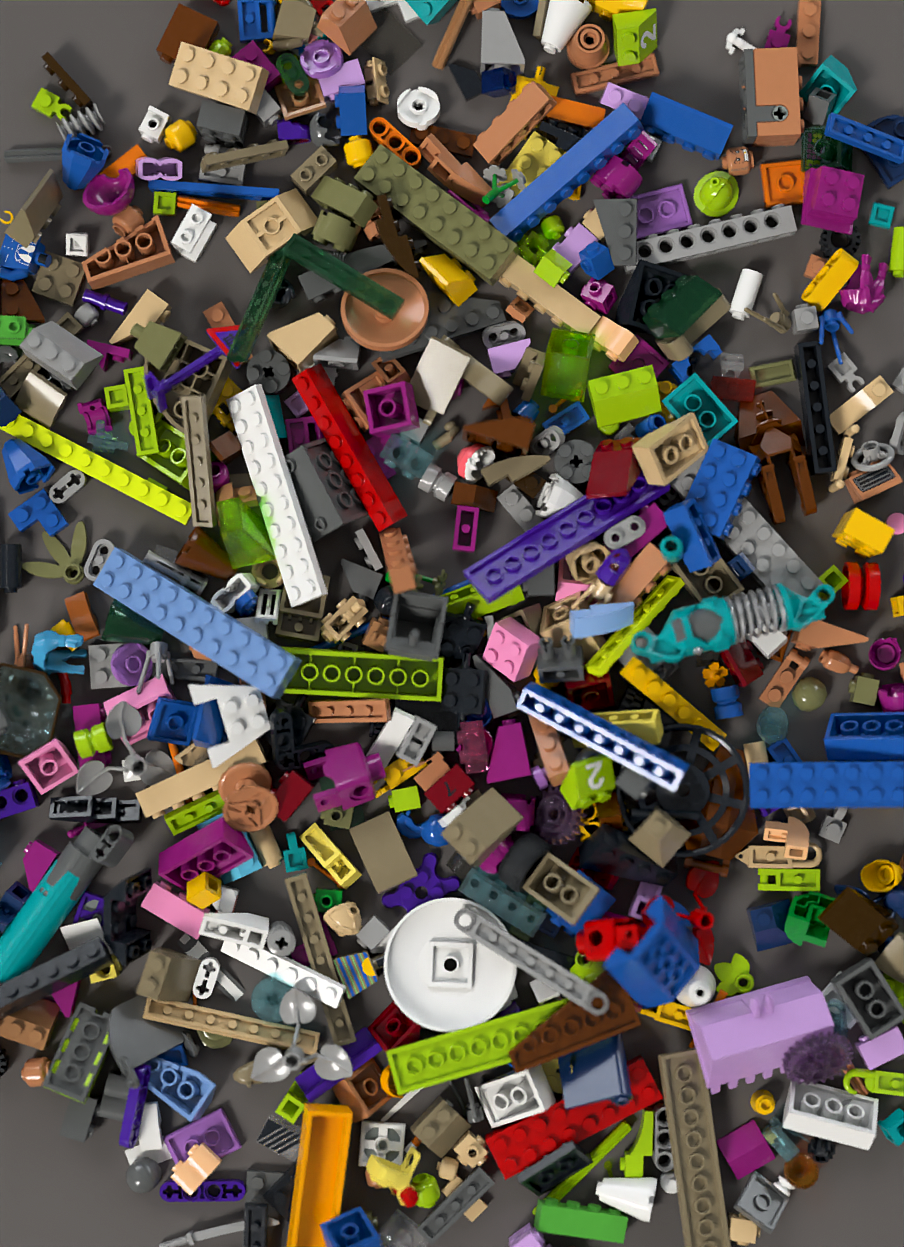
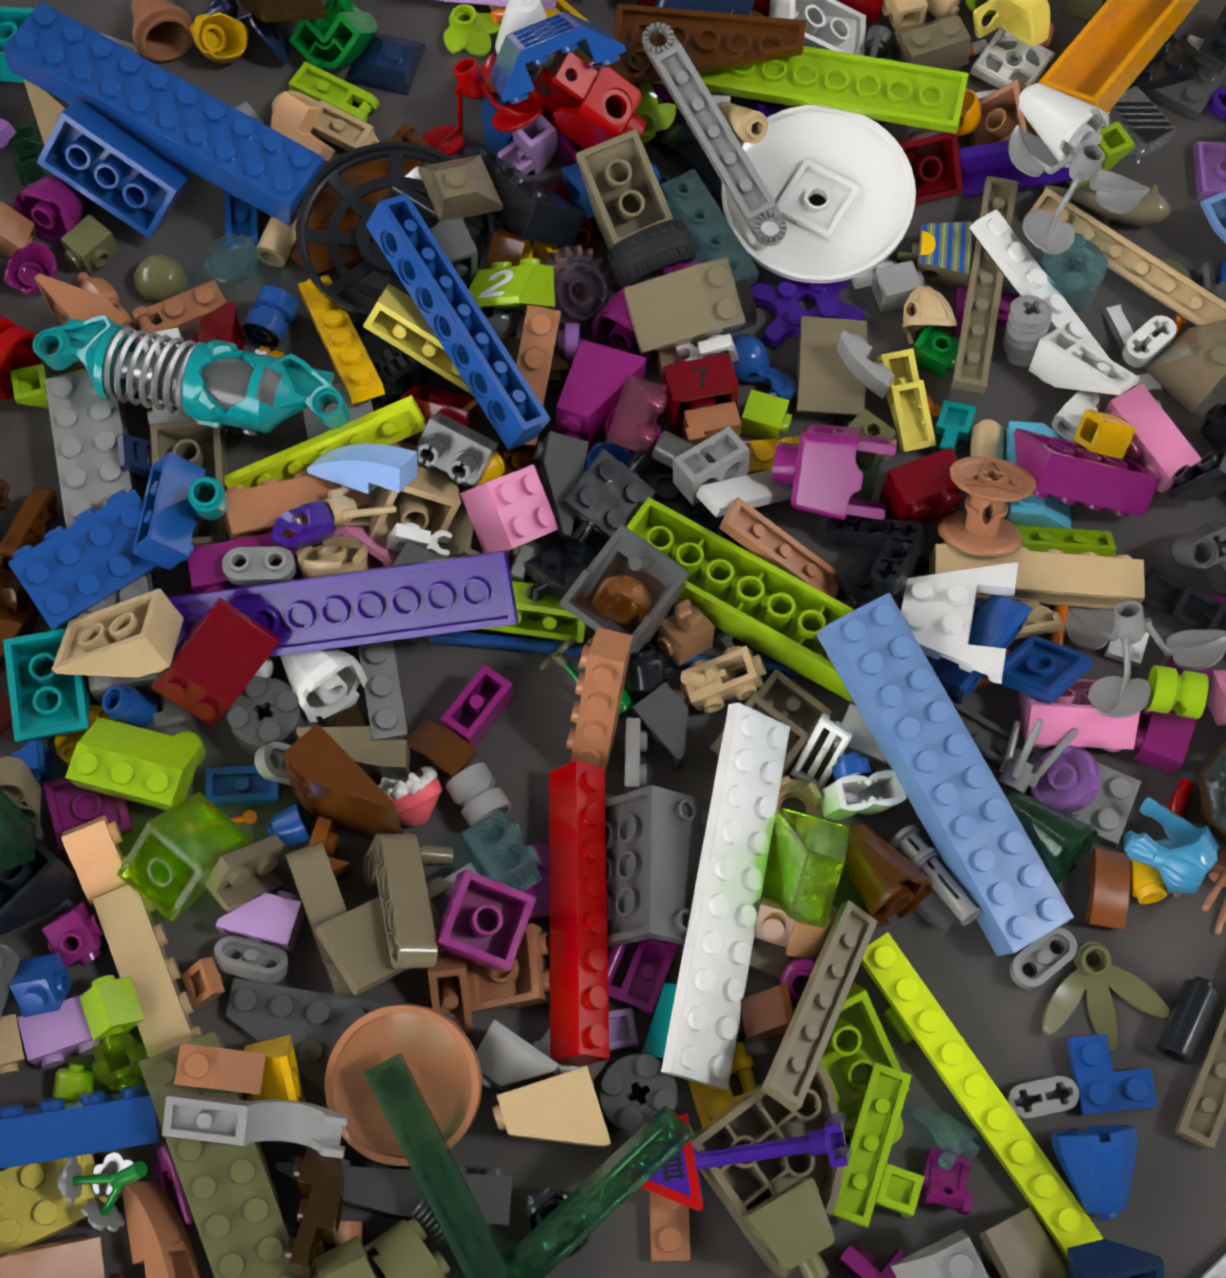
camera: 155 degrees left, 20 degrees down
(325, 1090) = (1061, 119): none -> white cone
(370, 859) = (855, 354): none -> light grey slope
(414, 619) = (622, 598): none -> clear orange hair
(438, 397) = (398, 871): none -> dark tan beam
(447, 243) = (253, 1121): none -> light grey piece
(472, 259) = (220, 1069): none -> nougat slope
(521, 982) = (746, 123): none -> tan brick
(555, 600) = (412, 532): none -> white plate

